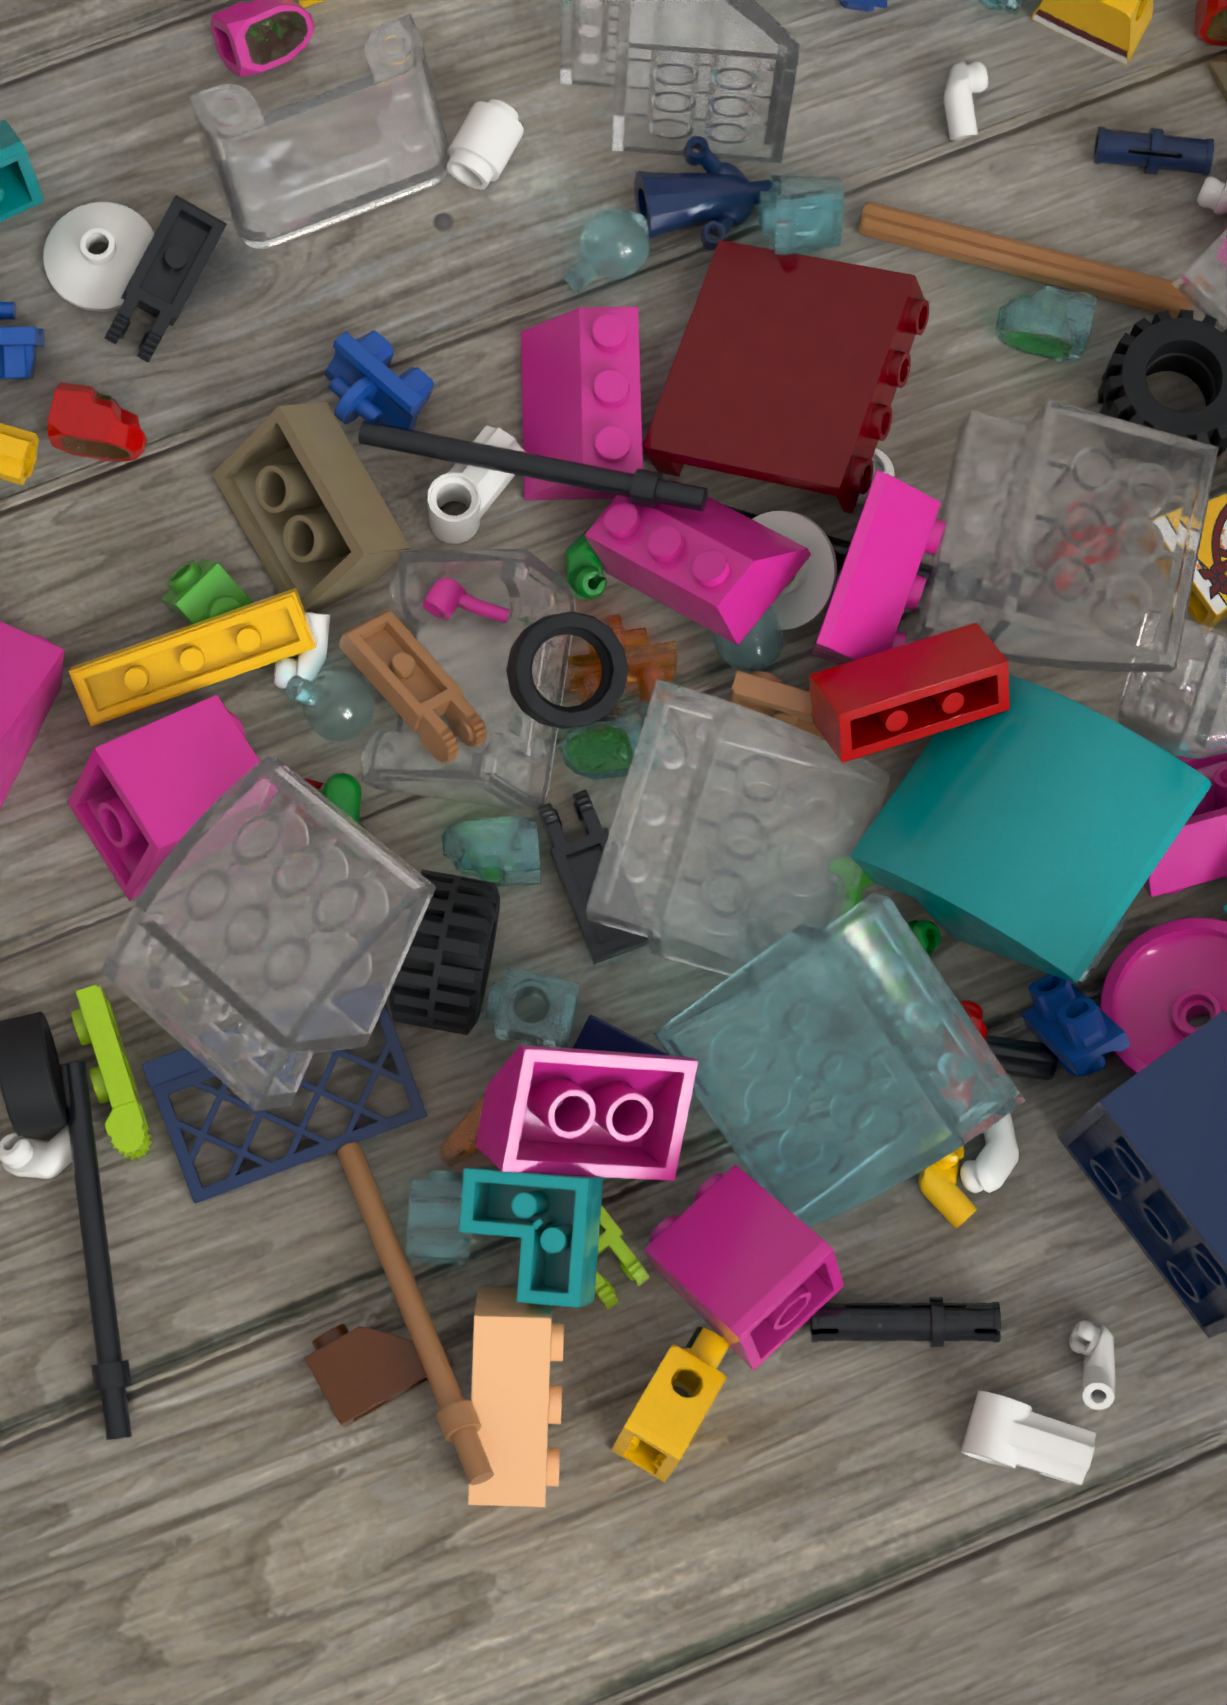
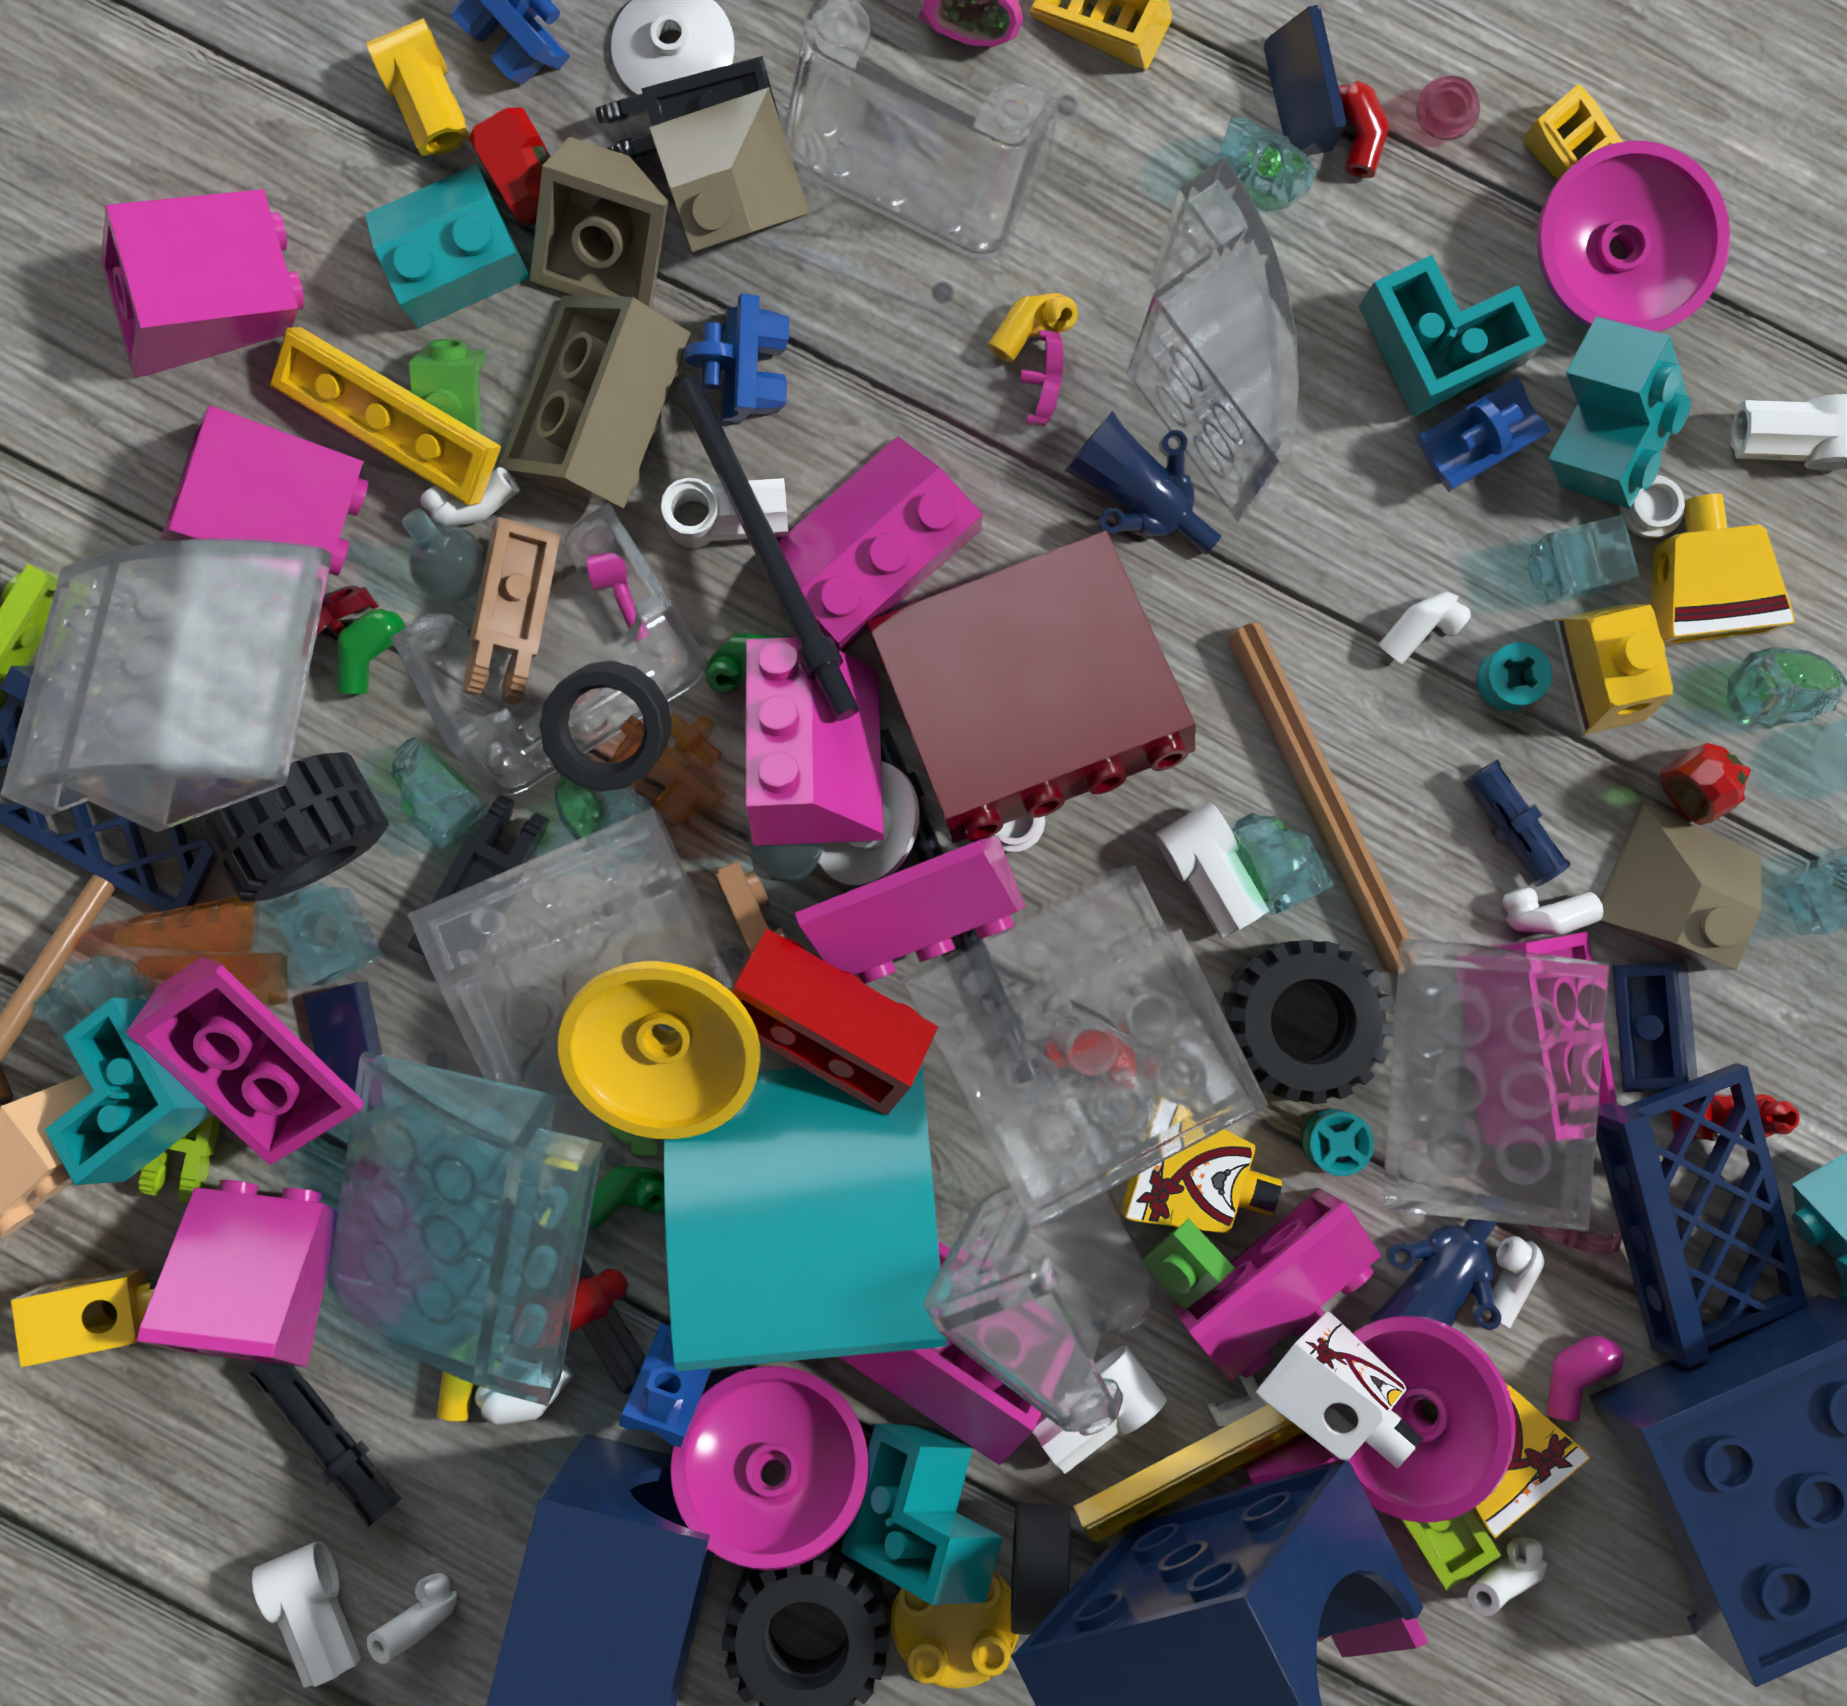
camera: 55 degrees right, 10 degrees up
(104, 517) = (445, 246): none -> teal slope
(194, 400) = (597, 224): none -> dark tan slope
(233, 287) = (729, 169): none -> dark tan slope
(457, 1083) = (205, 926): none -> clear orange slope
(484, 143) = (1032, 265): white brick -> none
(520, 175) = (1027, 316): none -> yellow arm
(568, 192) = (1050, 379): none -> dark pink piece
(612, 245) = (1029, 446): clear light blue piece -> none
(801, 213) = (1188, 578): clear light blue slope -> none
(866, 819) = (653, 1077): none -> yellow dish
(1000, 367) = (1204, 855): none -> white piece
(1041, 83) = (1502, 686): none -> teal wheel

